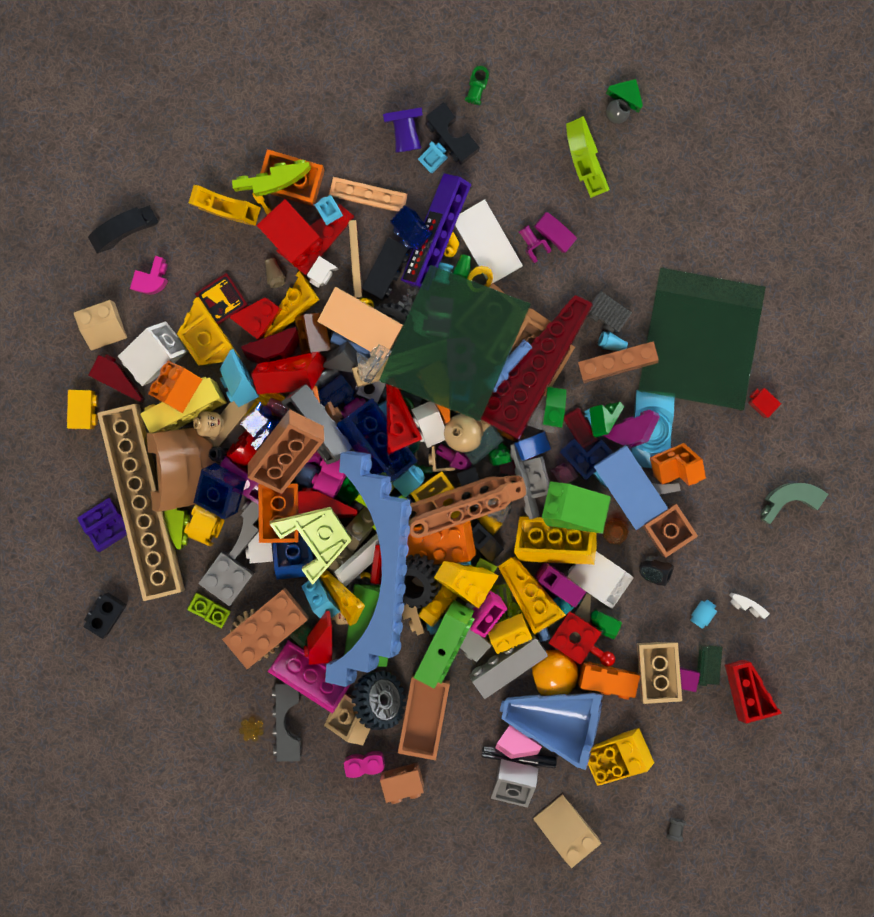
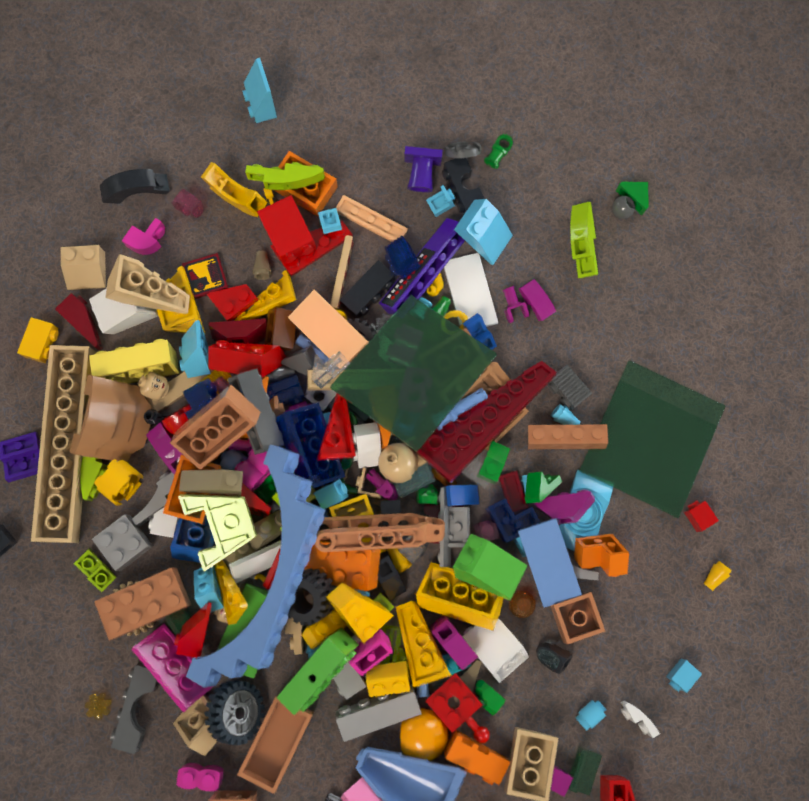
camera: 10 degrees right, 10 degrees down
(164, 332) = (138, 286): none -> tan wedge
(175, 386) = (130, 337): orange slope -> none
(182, 230) = (188, 204): none -> clear pink brick
(217, 95) = (259, 94): none -> medium azure slope
(219, 491) = (142, 452): clear blue brick -> none
(296, 502) = (212, 482): none -> dark tan slope
(321, 272) = (306, 276): white window -> none
(440, 96) = (462, 150): none -> dark grey tile
(484, 177) = (484, 230): none -> medium azure slope
(507, 282) = (478, 330): none -> blue slope
(780, 556) = (683, 676): none -> medium azure brick
(792, 454) = (717, 575): none -> yellow cone
(806, 493) = (723, 618): sand green arch -> none

